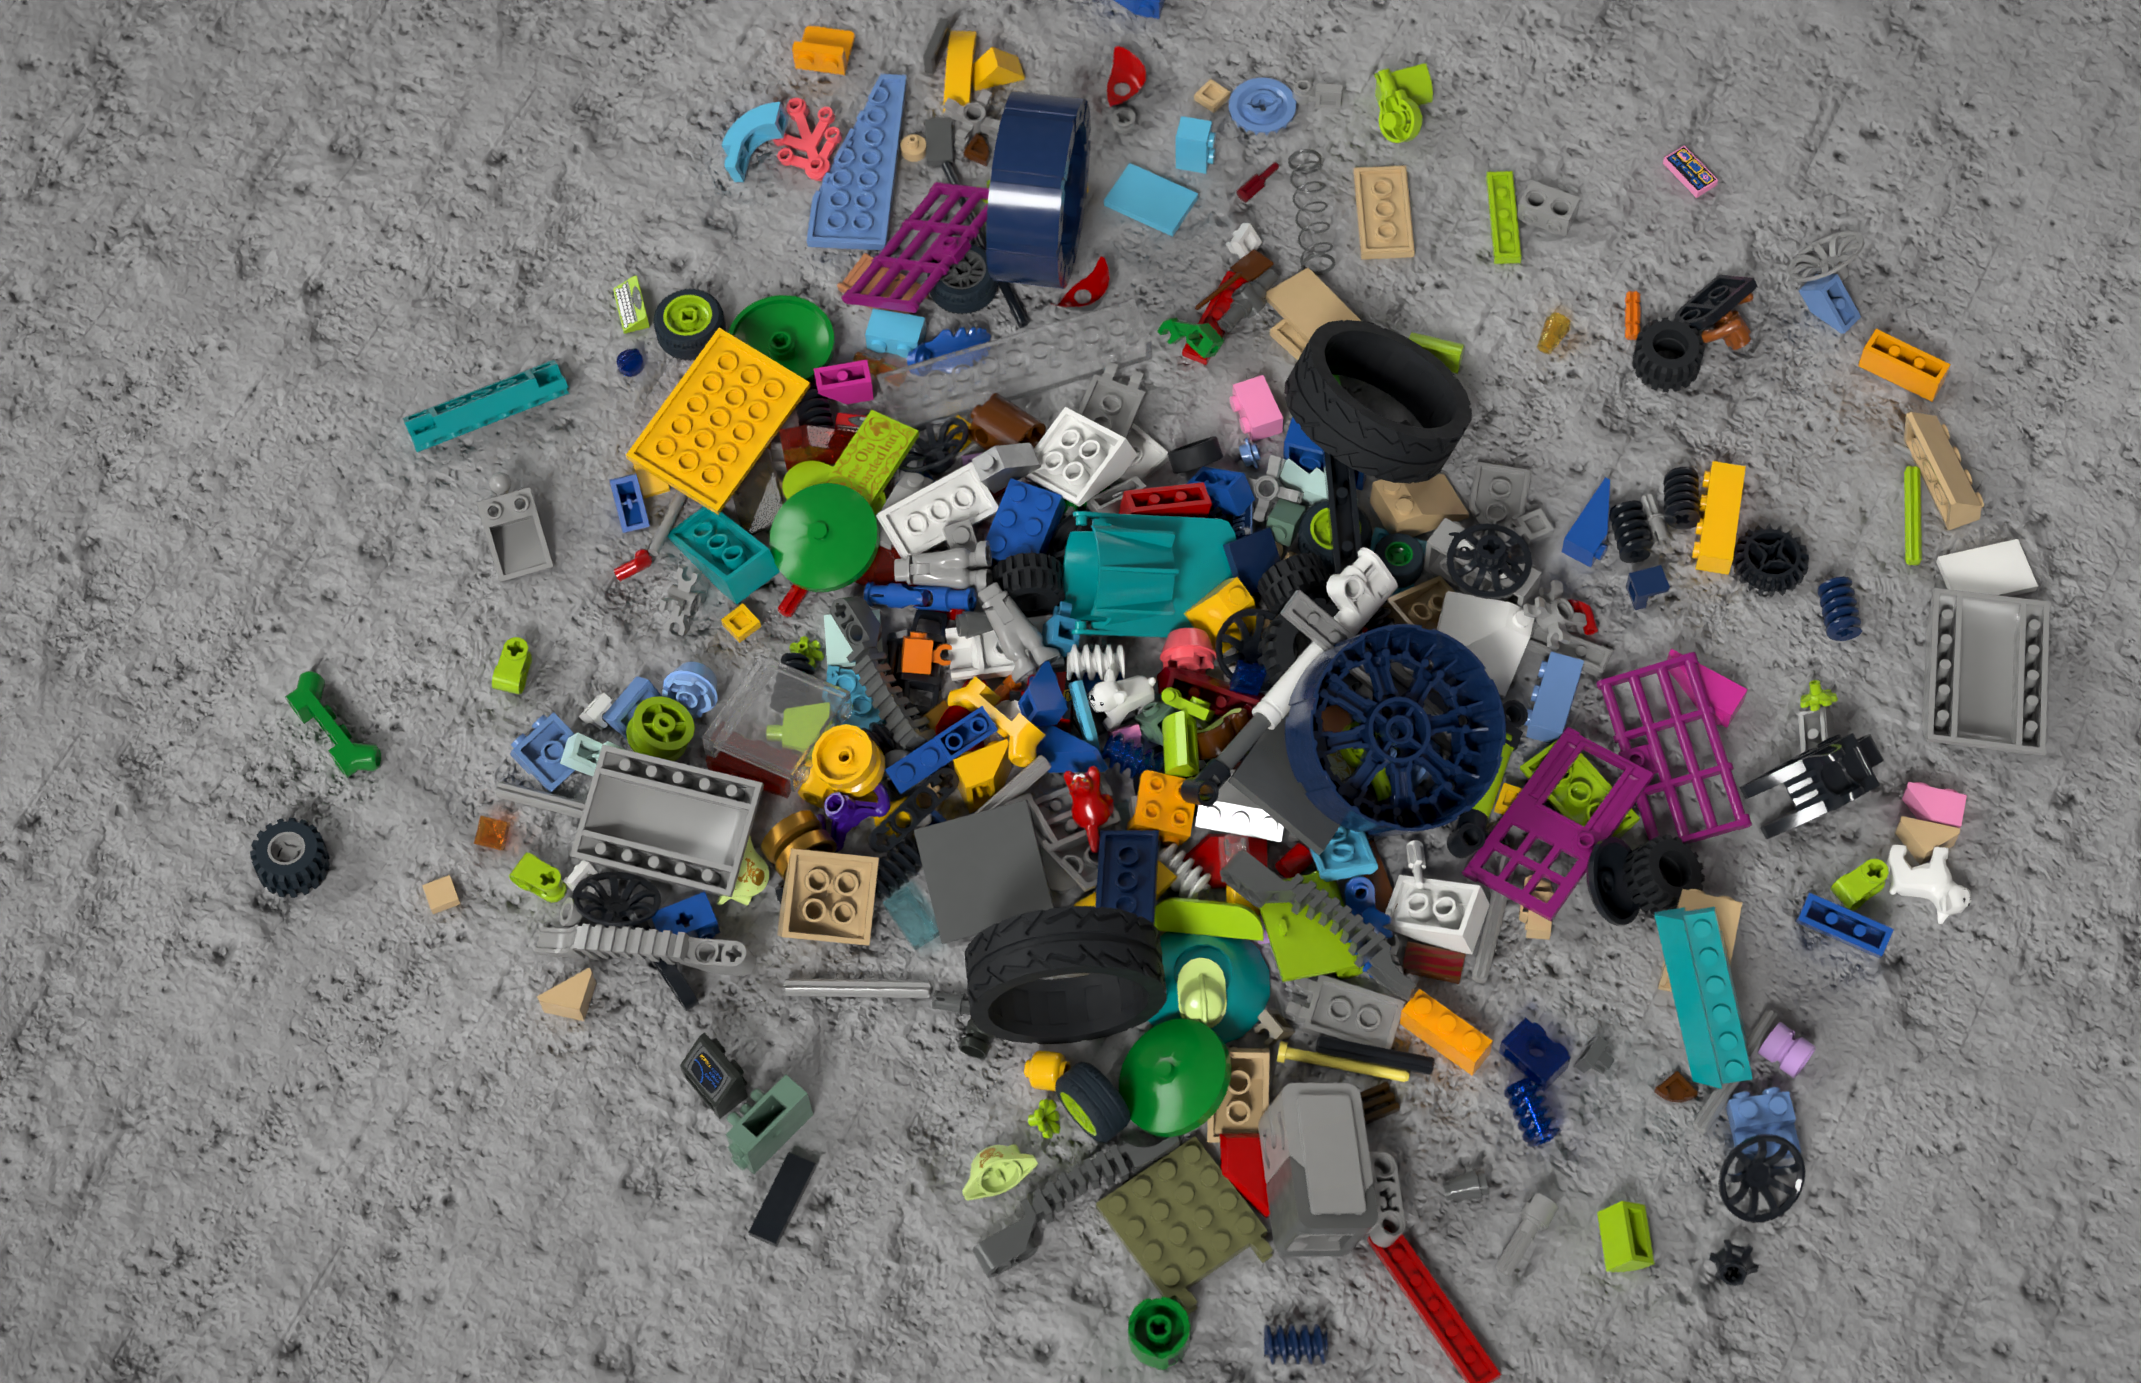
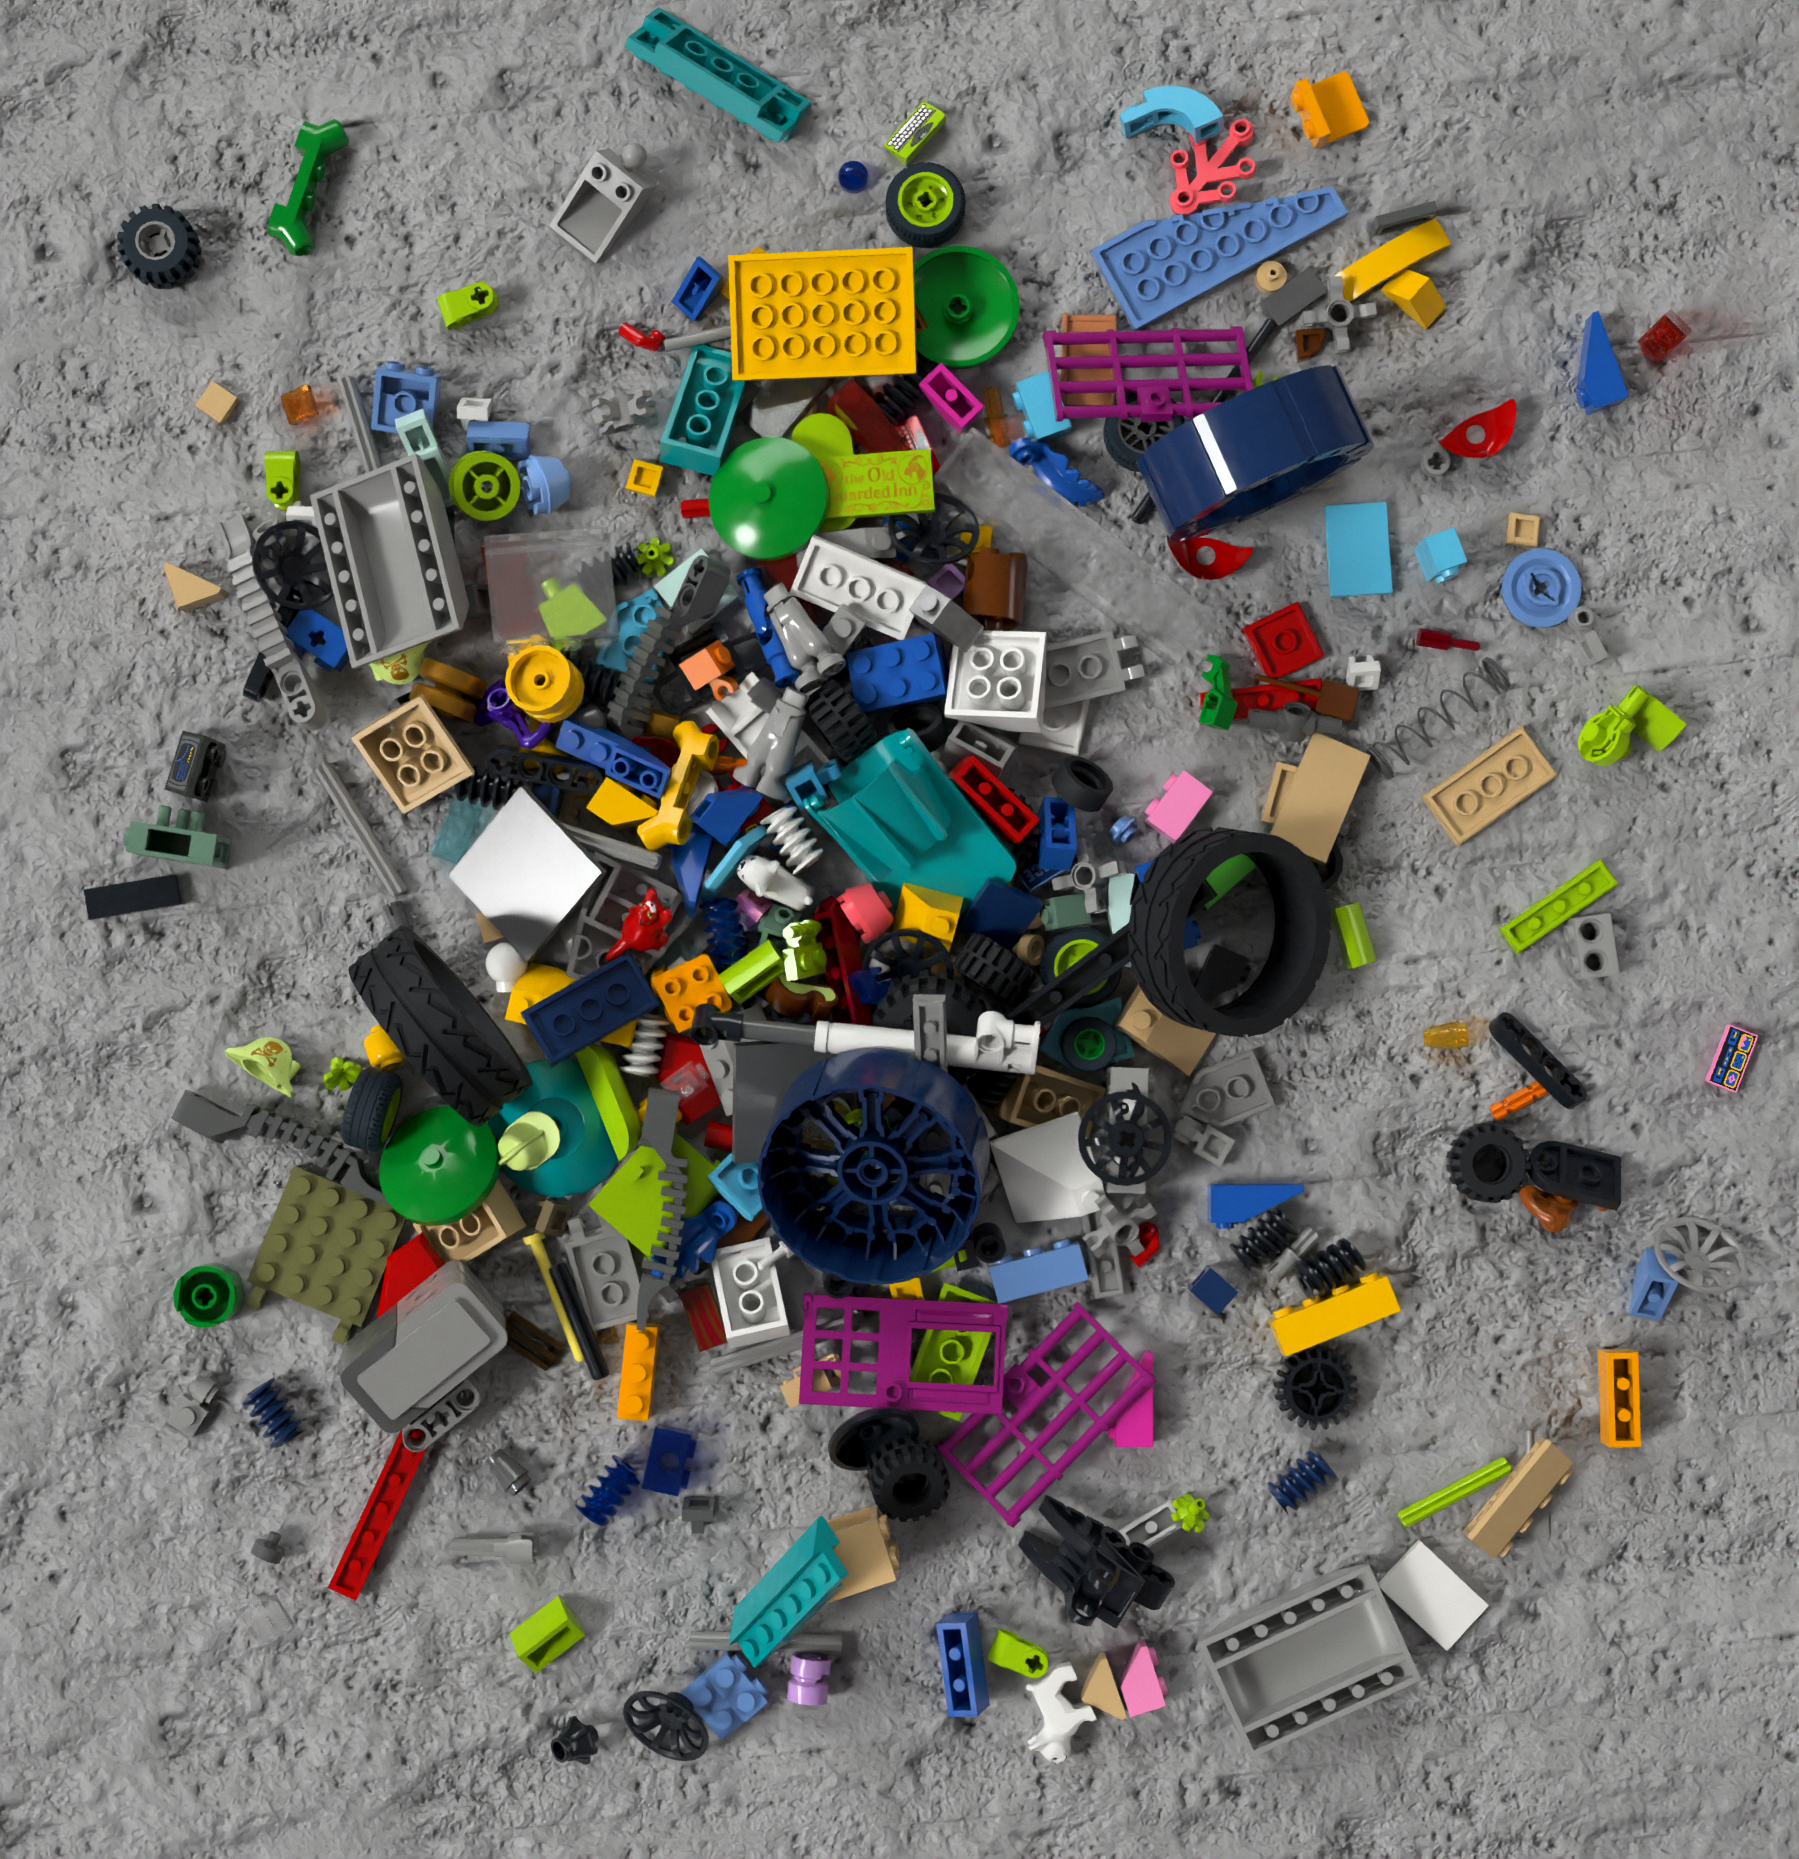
camera: 55 degrees right, 25 degrees up
(1183, 280) = (1283, 642): none -> red tile
(1610, 286) = (1507, 1028): none -> black beam
(1676, 1089) = (717, 1598): reddish brown tile -> none

